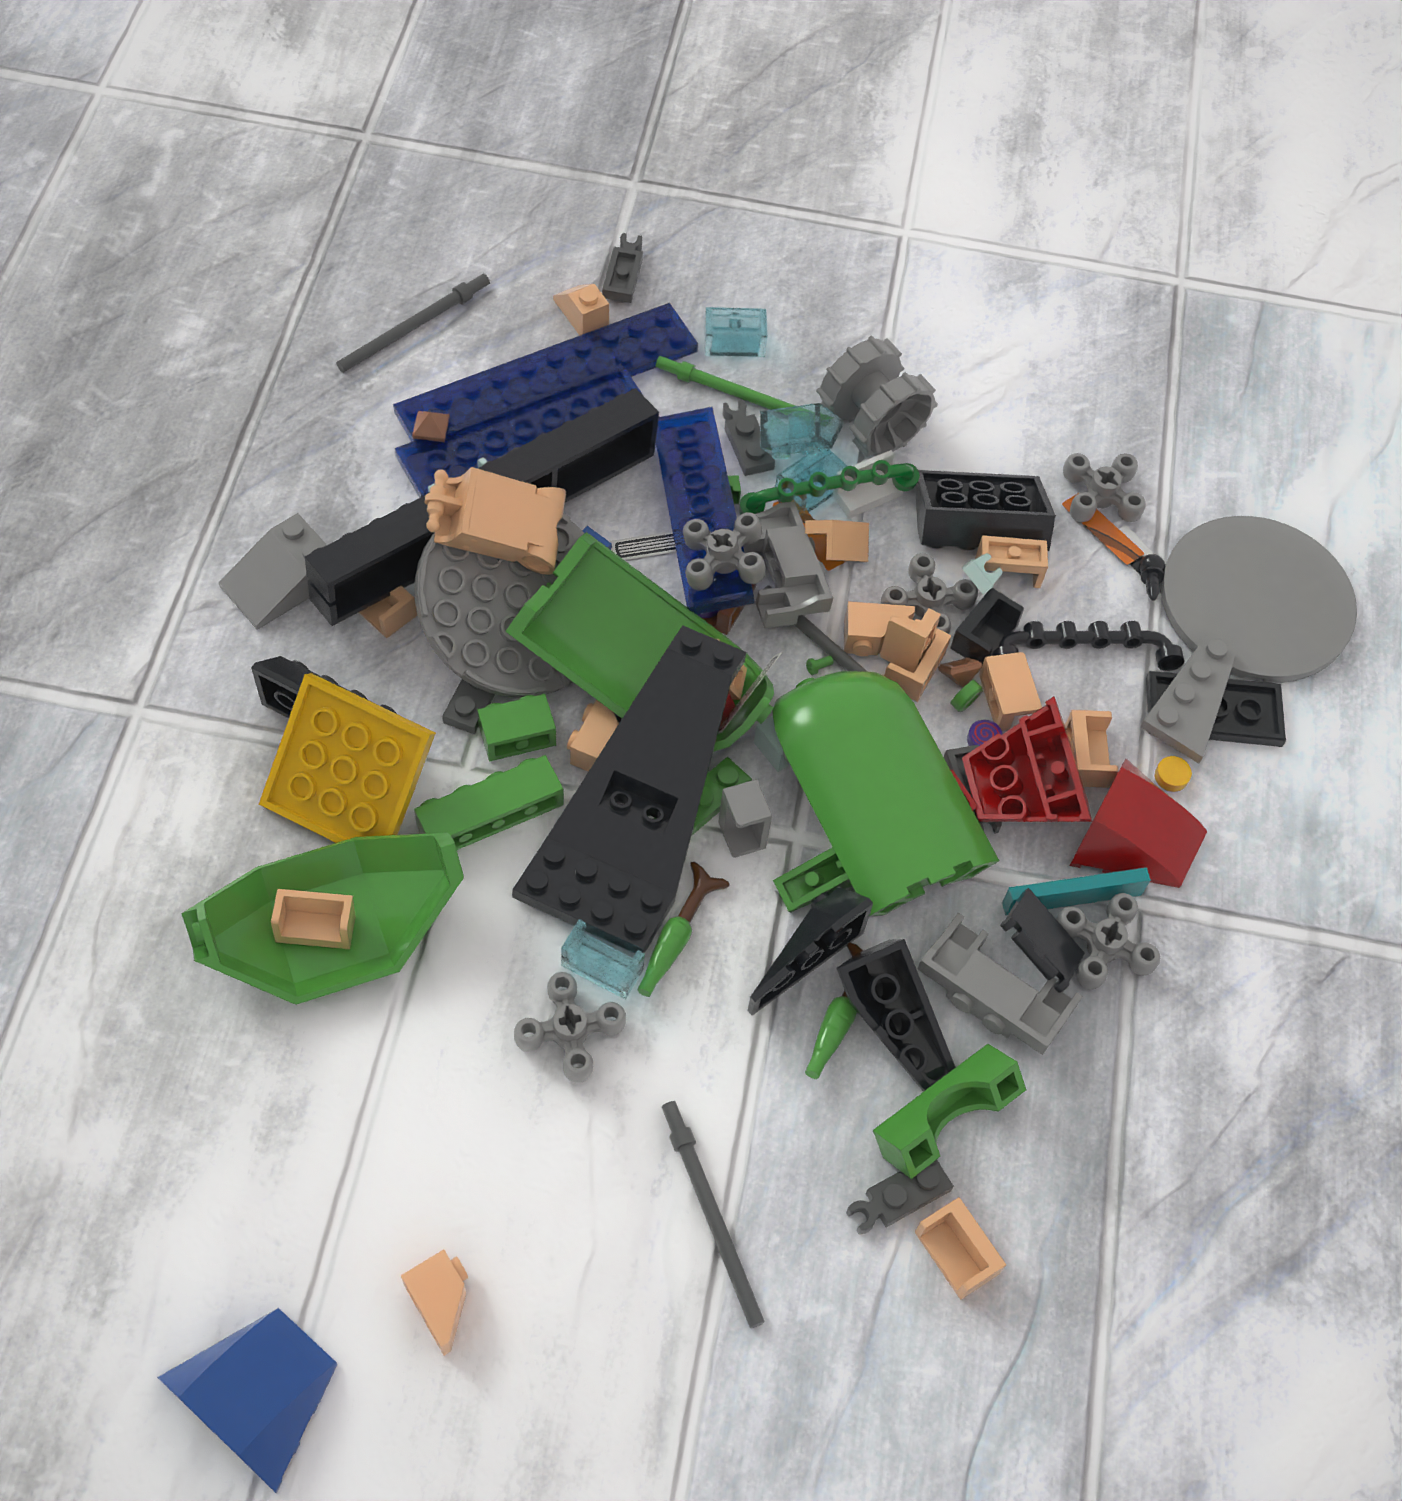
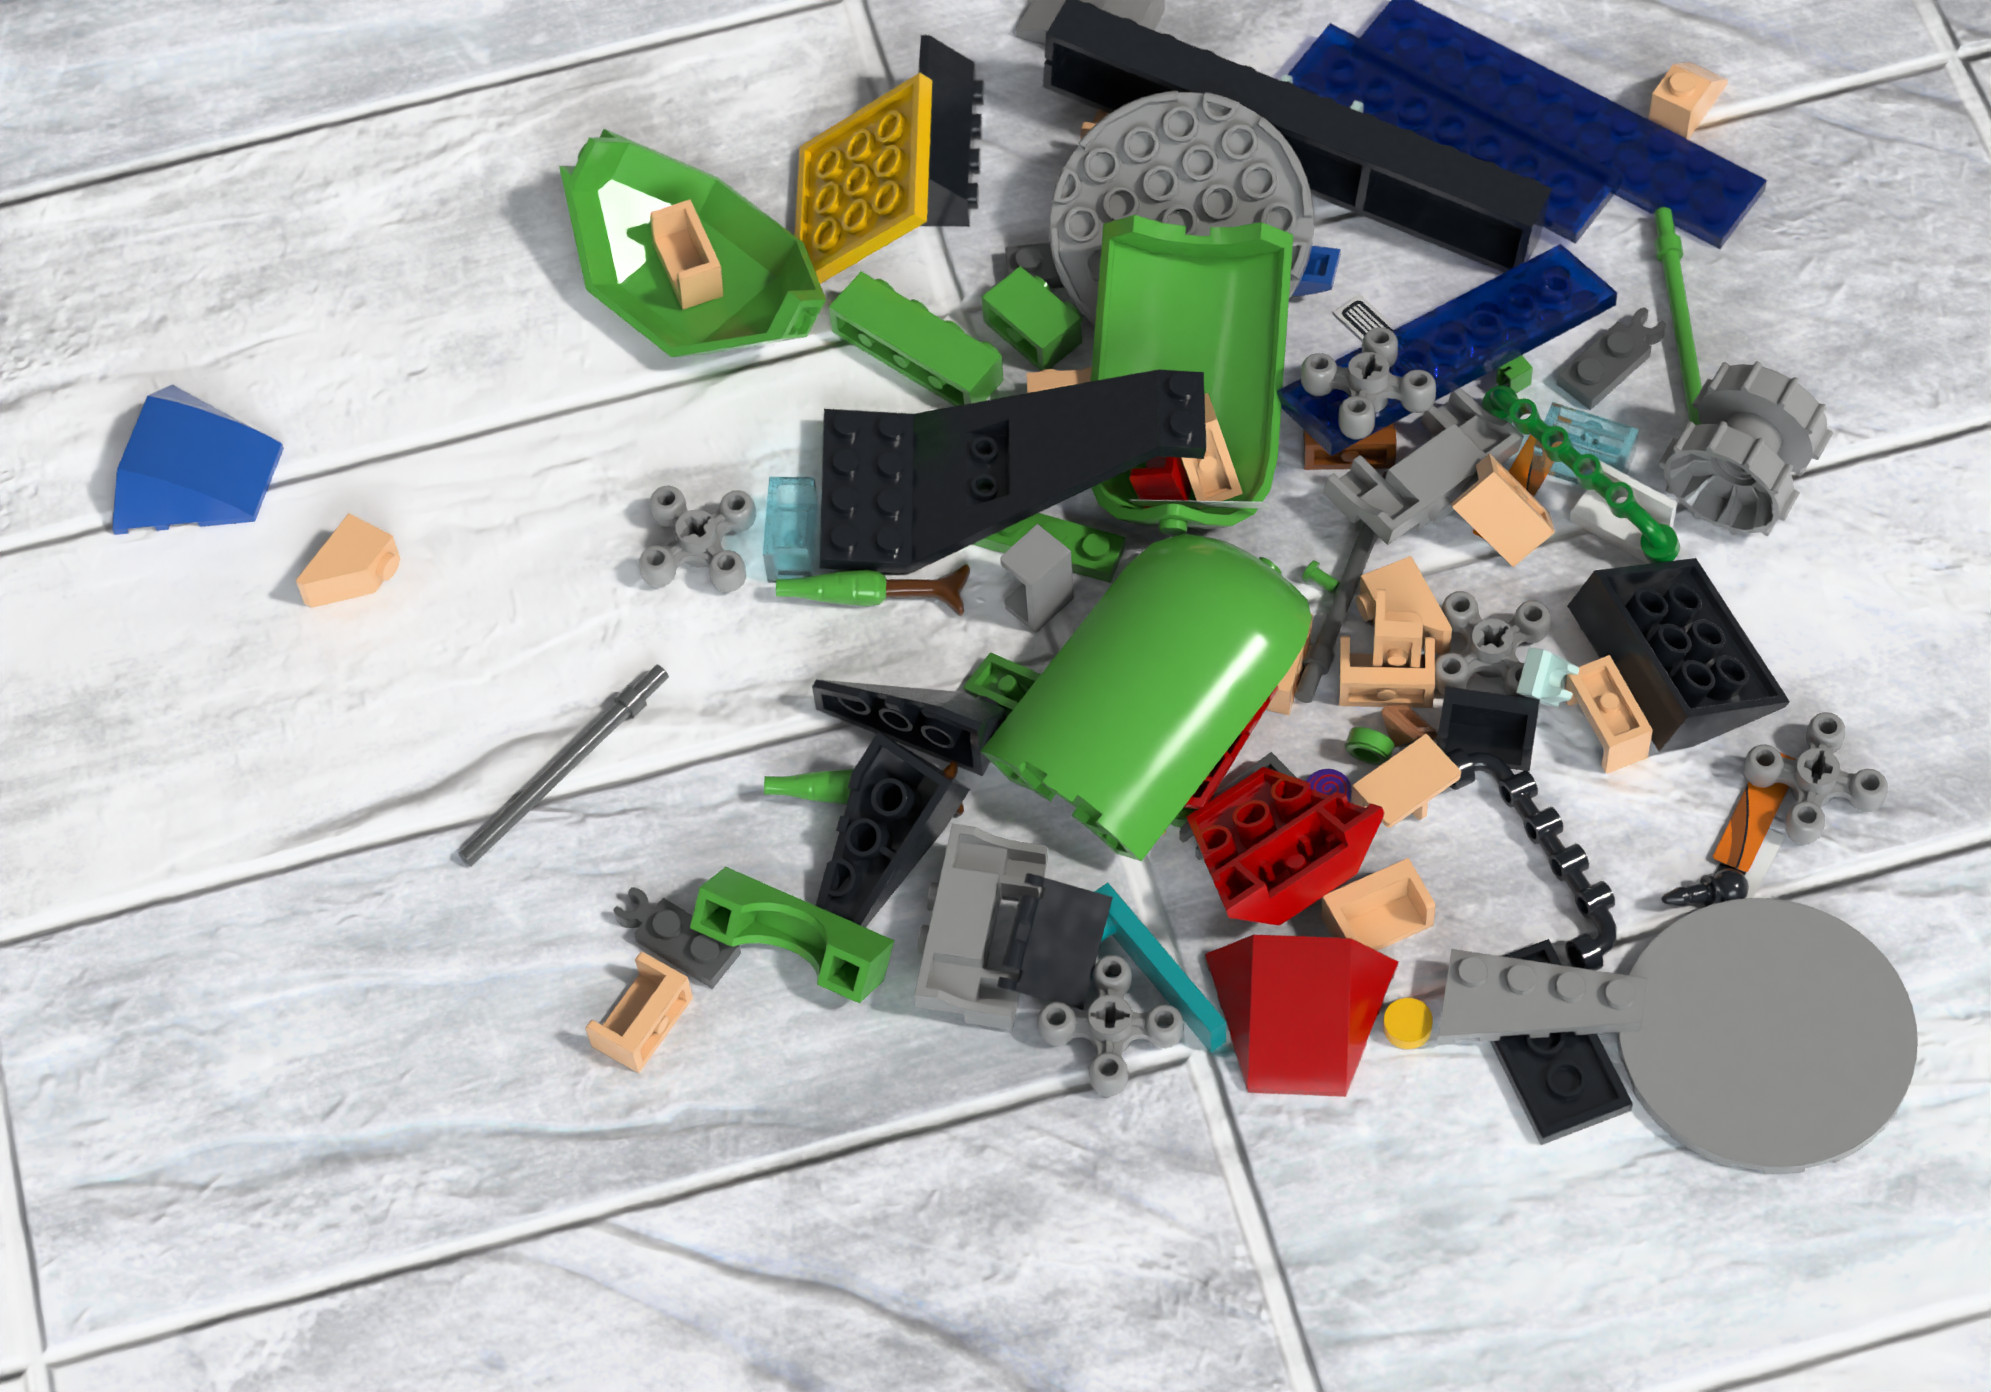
camera: 75 degrees right, 0 degrees up
(431, 426) = (1383, 38): nougat slope -> none
(497, 517) = (1232, 134): light nougat piece -> none
(623, 270) = (1784, 109): dark grey plate -> none
(735, 332) = (1768, 267): clear light blue panel -> none
(798, 430) = (1628, 392): clear light blue slope -> none

